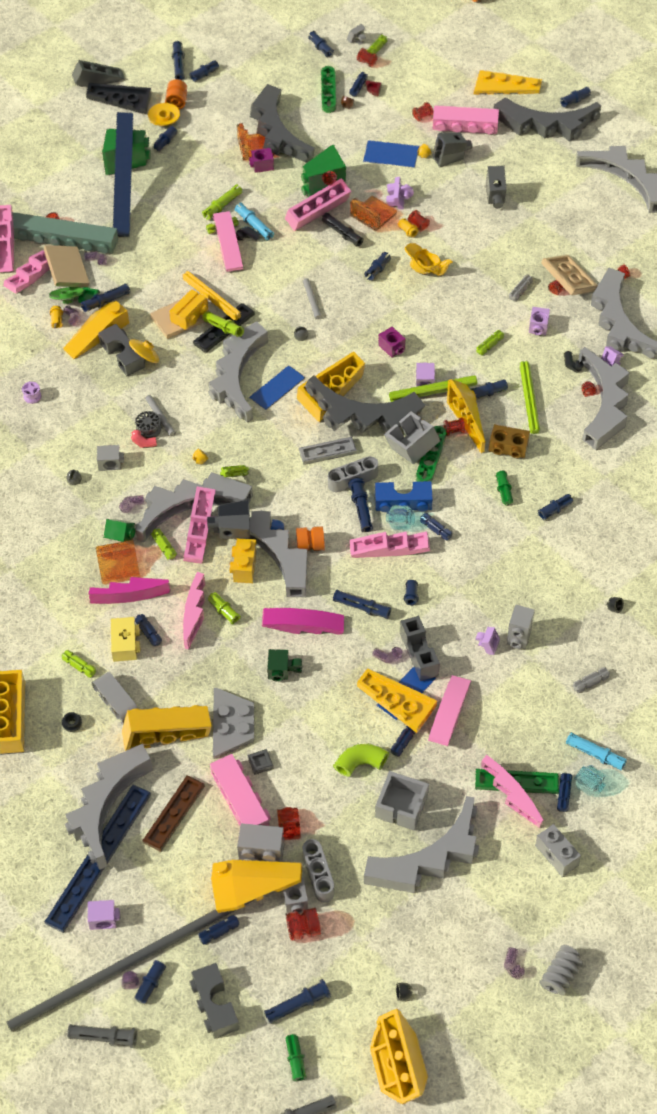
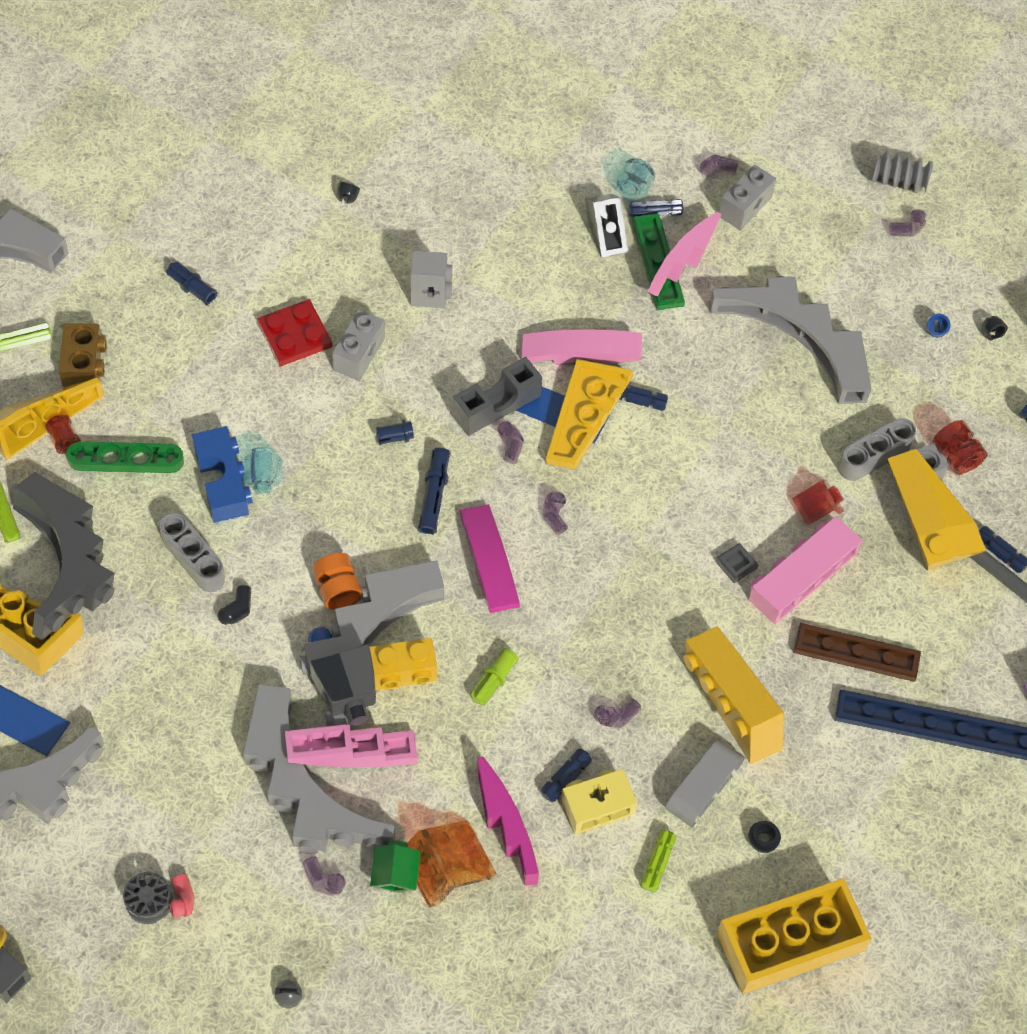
camera: 110 degrees left, 5 degrees up
(109, 457) = (238, 939): light grey brick -> none
(114, 777) = (881, 748): light grey arch -> none
(163, 544) = (395, 799): lime axle -> none
(167, 426) = (115, 890): light grey bar -> none
(175, 664) = (617, 717): none -> clear purple arm
(193, 610) = (529, 713): bright pink slope -> none
(200, 456) = (200, 794): yellow hinge -> none
(231, 722) = (687, 611): light grey wing -> none
(234, 471) = (228, 722): lime axle -> none
(260, 843) = (880, 506): light grey piece -> none
(280, 664) = (576, 570): dark green brick -> none
(310, 493) = (238, 609): none -> black arm
(327, 450) = (144, 606): light grey tile -> none
(331, 665) = (551, 509): none -> clear purple arm
(359, 755) = (688, 438): lime cylinder -> none
(360, 497) = (236, 534): dark blue pin -> none
(393, 545) = (316, 477): bright pink slope -> none
(401, 800) = (744, 379): light grey piece -> none
(413, 945) = (943, 325): none -> blue hinge
(418, 440) = (114, 476): light grey piece -> none
(436, 526) = (263, 425): dark blue axle -> none
(481, 582) = (358, 345): none -> light grey brick
(488, 640) = (453, 321): lavender tile -> none
(504, 487) = (170, 350): green axle -> none
(504, 555) = (294, 332): none -> red plate
(553, 751) = (607, 224): none -> slope
(591, 680) = (477, 203): light grey axle -> none
(596, 751) = (589, 174): medium azure pin -> none
(598, 843) = (716, 164): none -> clear purple arm

